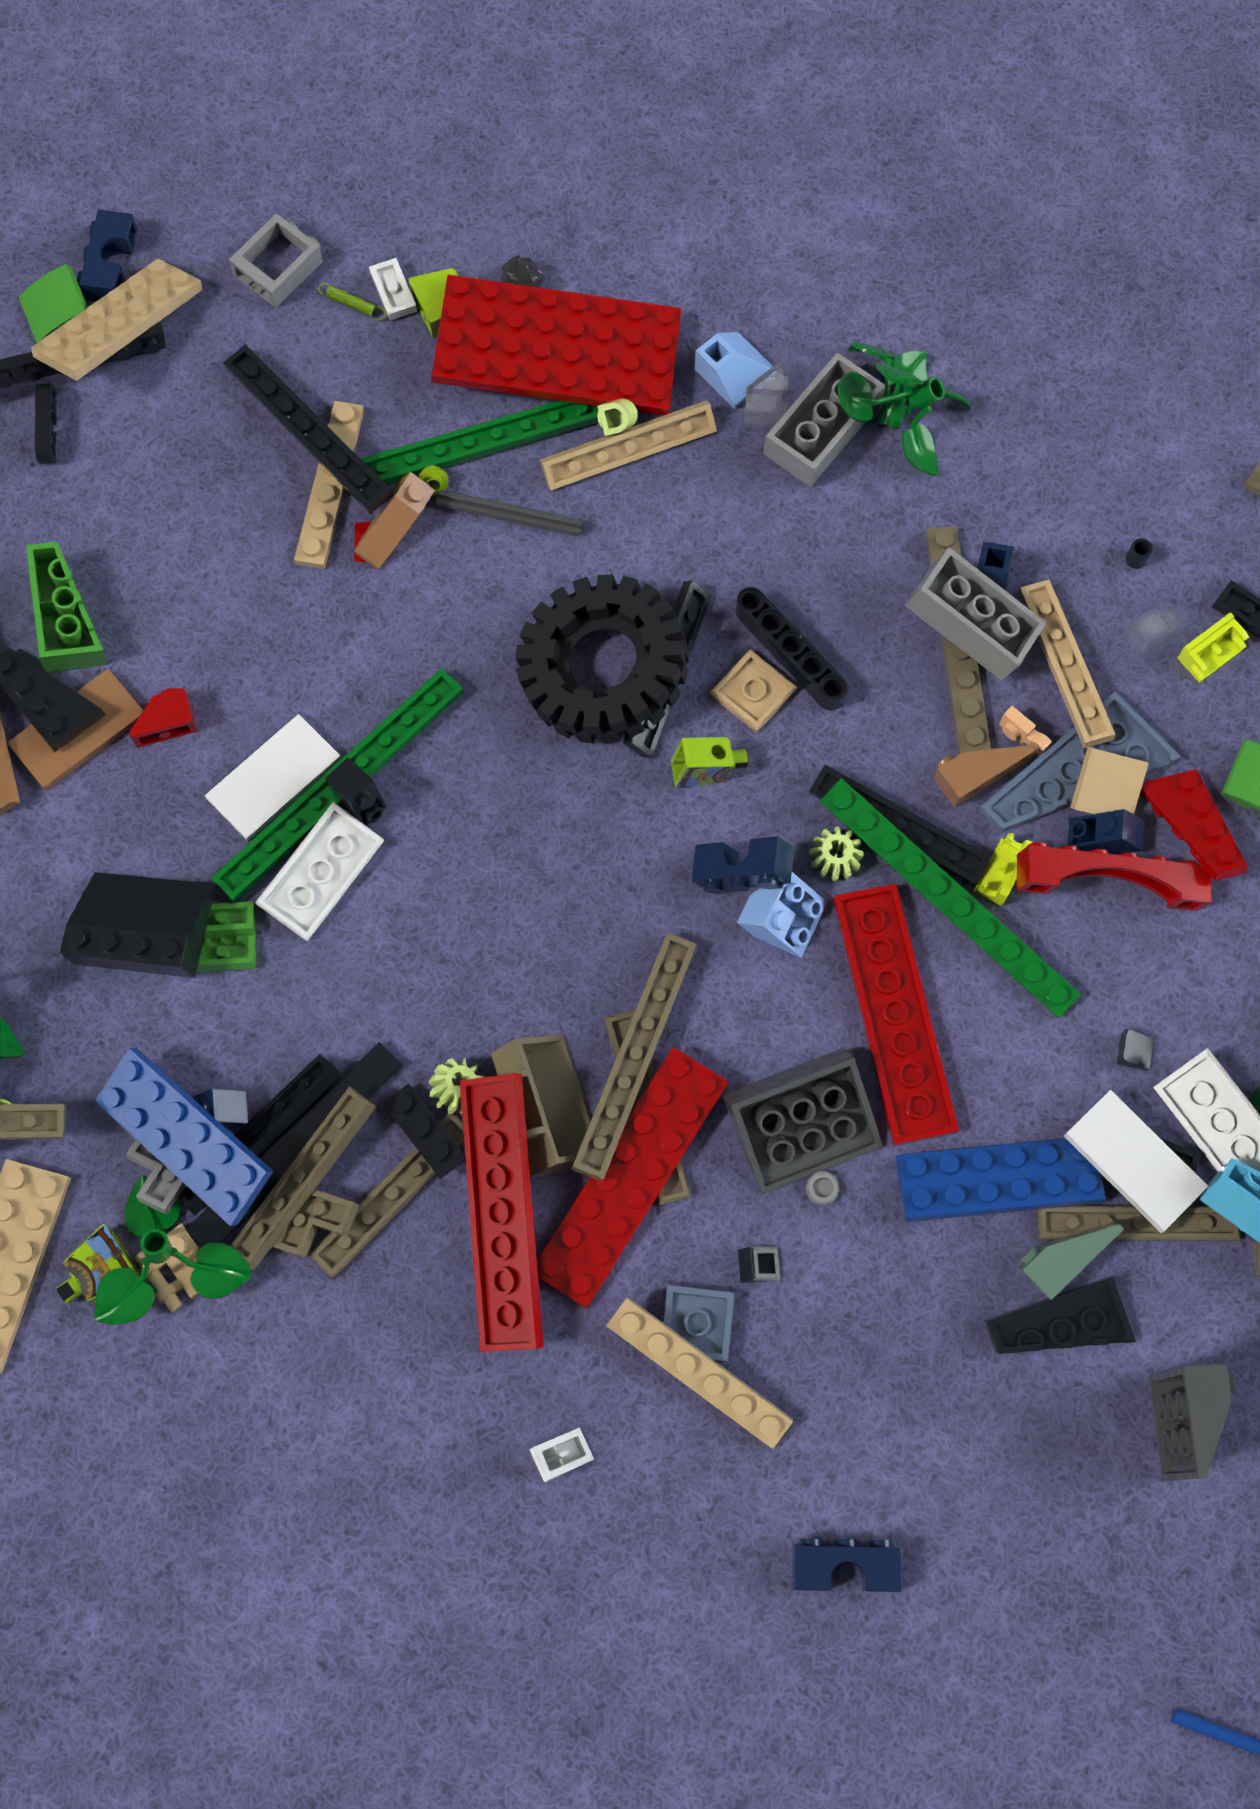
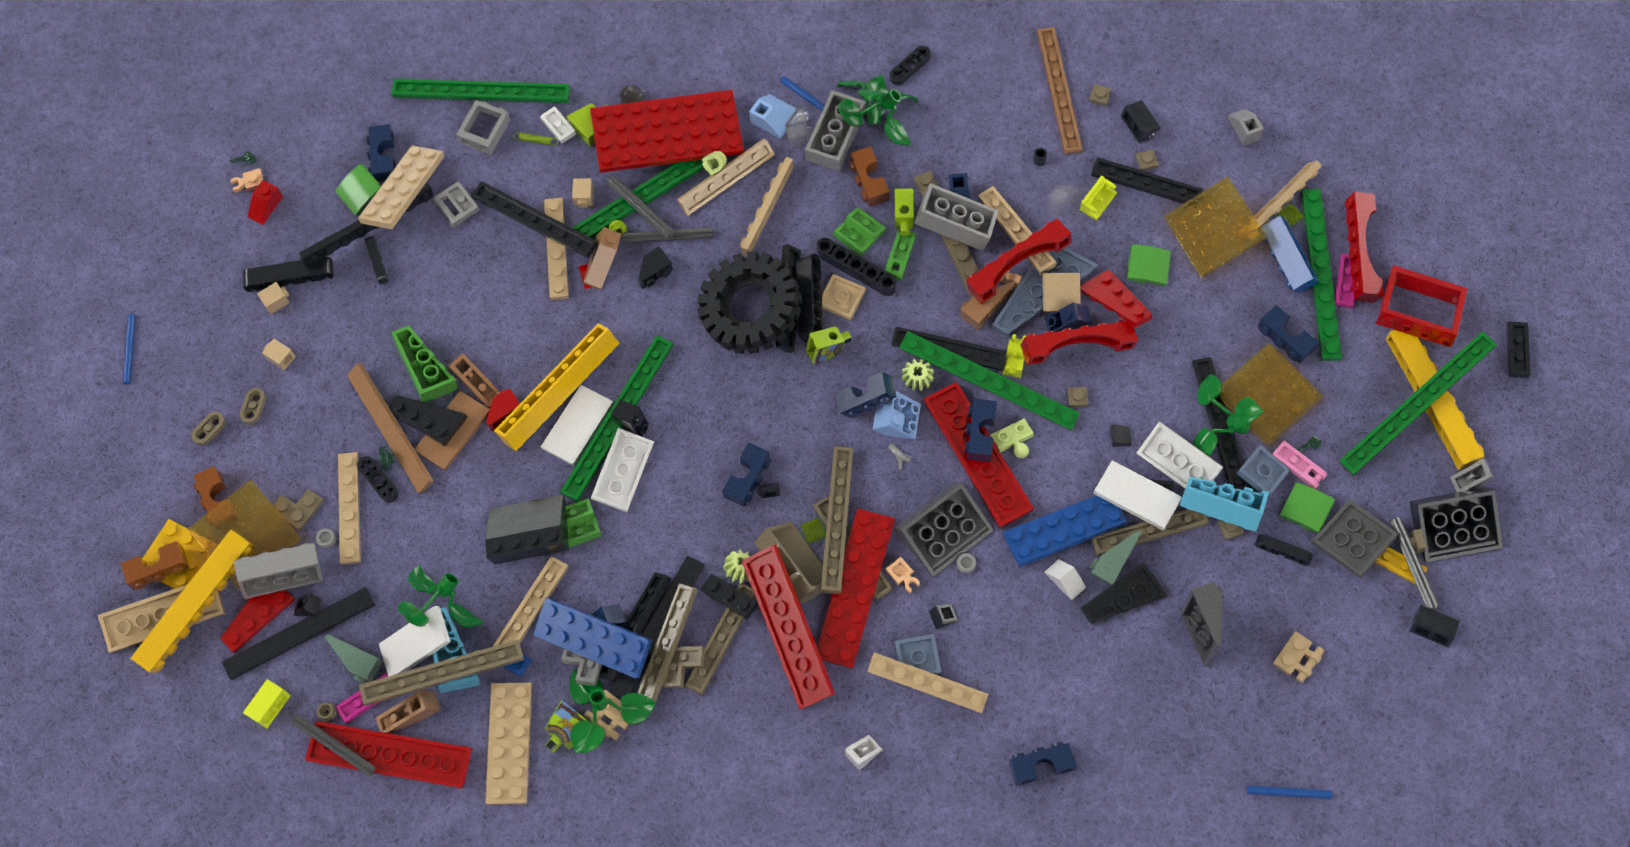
camera: 10 degrees left, 5 degrees down
(60, 1147) = (519, 667): none -> blue plate
(108, 1049) = (533, 601): none -> tan plate
(133, 656) = (473, 379): none -> medium nougat slope
(205, 368) = (460, 200): none -> light grey plate
(258, 707) = (556, 387): none -> yellow brick
(291, 202) = (480, 90): none -> green plate
(397, 406) = (583, 192): none -> tan brick
(470, 558) = (654, 266): none -> black slope
(479, 455) = (640, 207): none -> dark grey axle
(497, 959) = (740, 489): none -> dark blue arch
(543, 972) = (770, 490): none -> black slope
(592, 1059) = (813, 530): none -> clear neon green tile
(684, 504) = (769, 201): none -> tan plate
(706, 666) = (810, 284): none -> black beam
(712, 1173) = (901, 572): none -> light nougat plate
(768, 977) = (899, 455): none -> light grey bar
(789, 344) = (802, 93): none -> blue bar
(813, 592) = (859, 231): none -> bright green slope
(856, 532) = (873, 190): none -> dark orange arch
(868, 647) = (900, 254): none -> bright green plate
(894, 579) = (904, 211): none -> lime torso
(900, 1003) = (982, 414): none -> dark blue arch
(960, 1000) = (1014, 436): none -> yellowish green plate
(976, 1263) = (1066, 578): none -> white slope
(979, 337) = (911, 58): none -> black beam
(1084, 965) = (1077, 397): none -> dark tan plate
(1119, 692) = (1050, 238): none -> red arch
(1201, 456) = (1059, 91): none -> medium nougat tile

